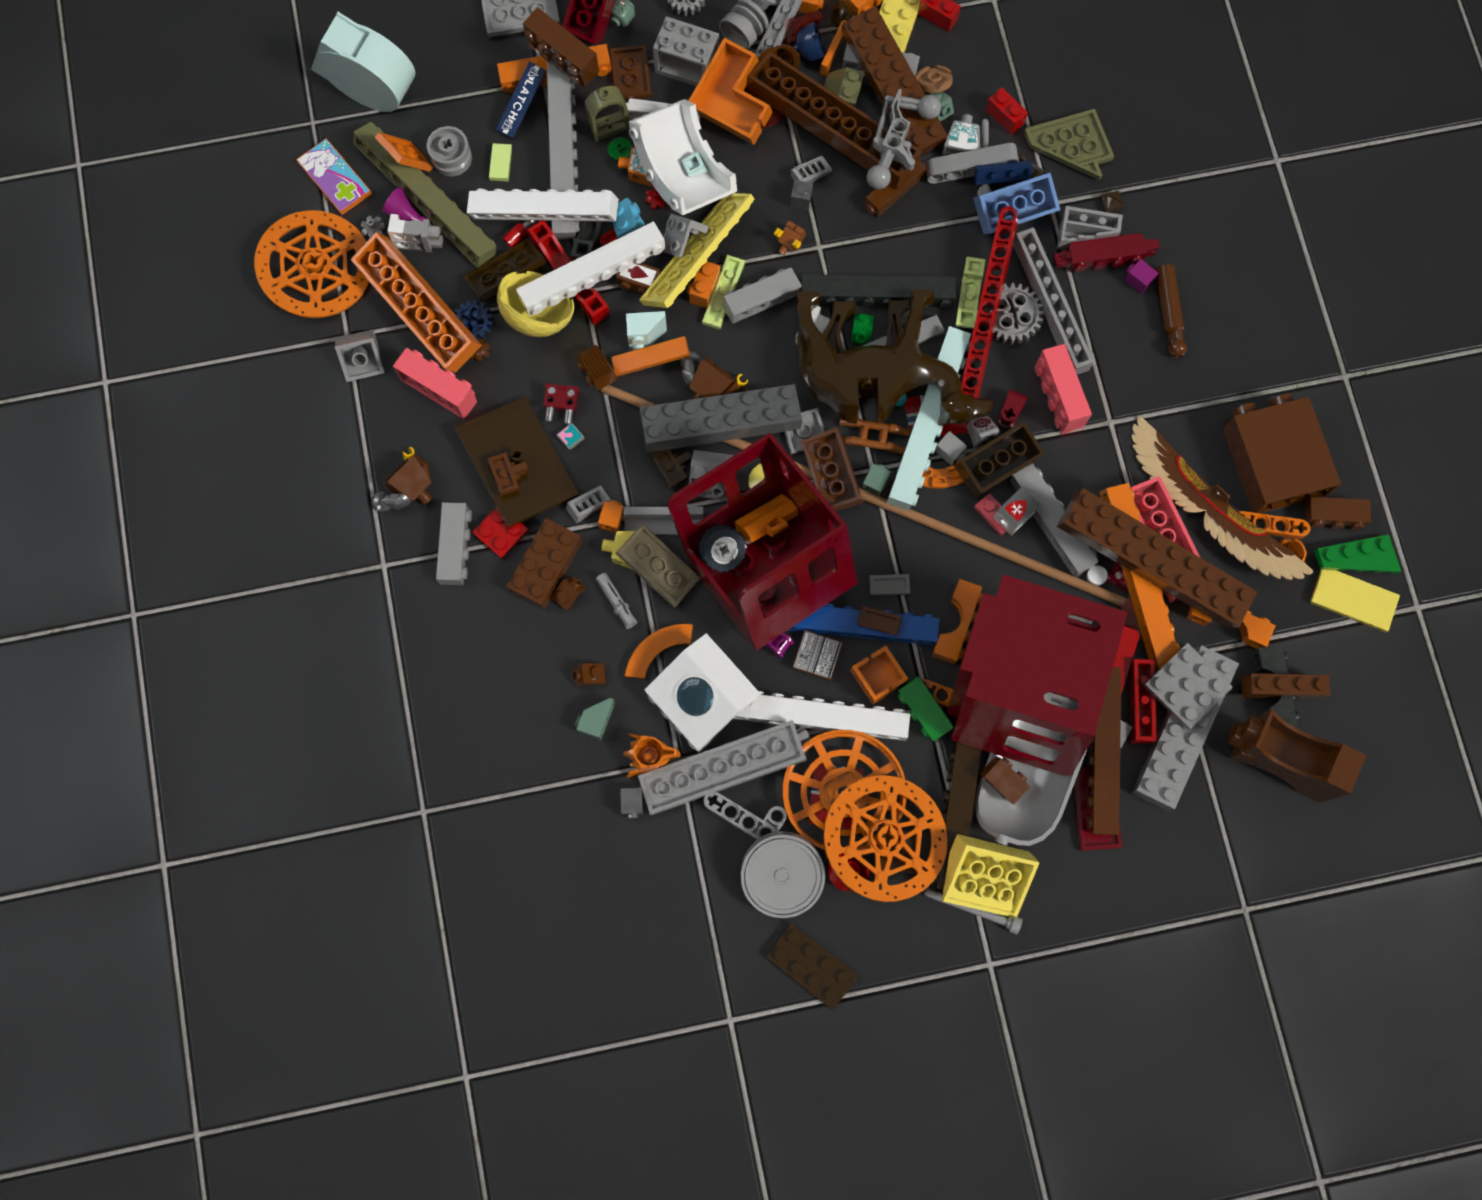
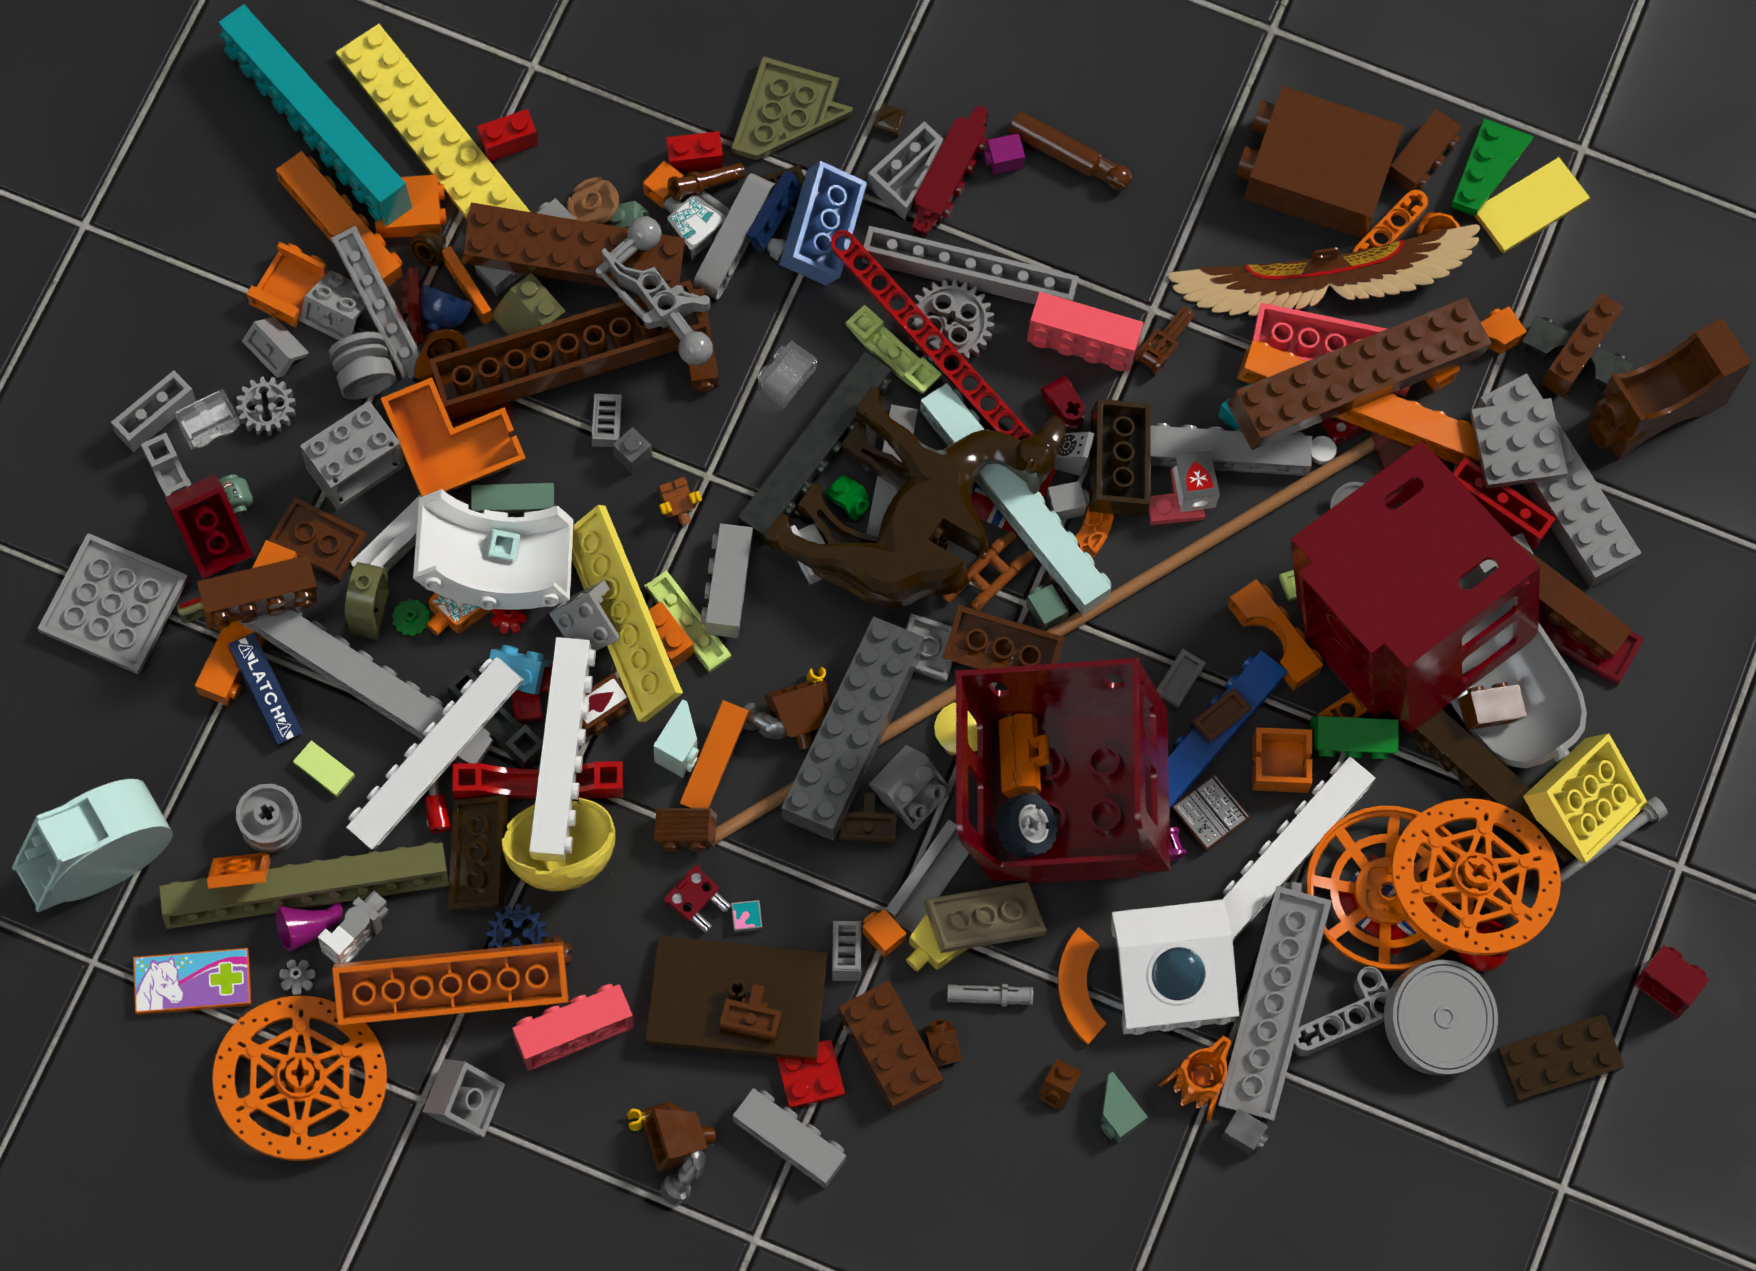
camera: 60 degrees left, 5 degrees down
(728, 154) = (512, 497): none -> sand green tile
(906, 1005) = (1671, 981): none -> dark red brick
(911, 246) = (786, 373): none -> clear brick
(975, 104) = (656, 184): none -> orange panel
(986, 121) = (696, 182): none -> reddish brown pin
(1090, 440) = (1162, 345): none -> reddish brown connector

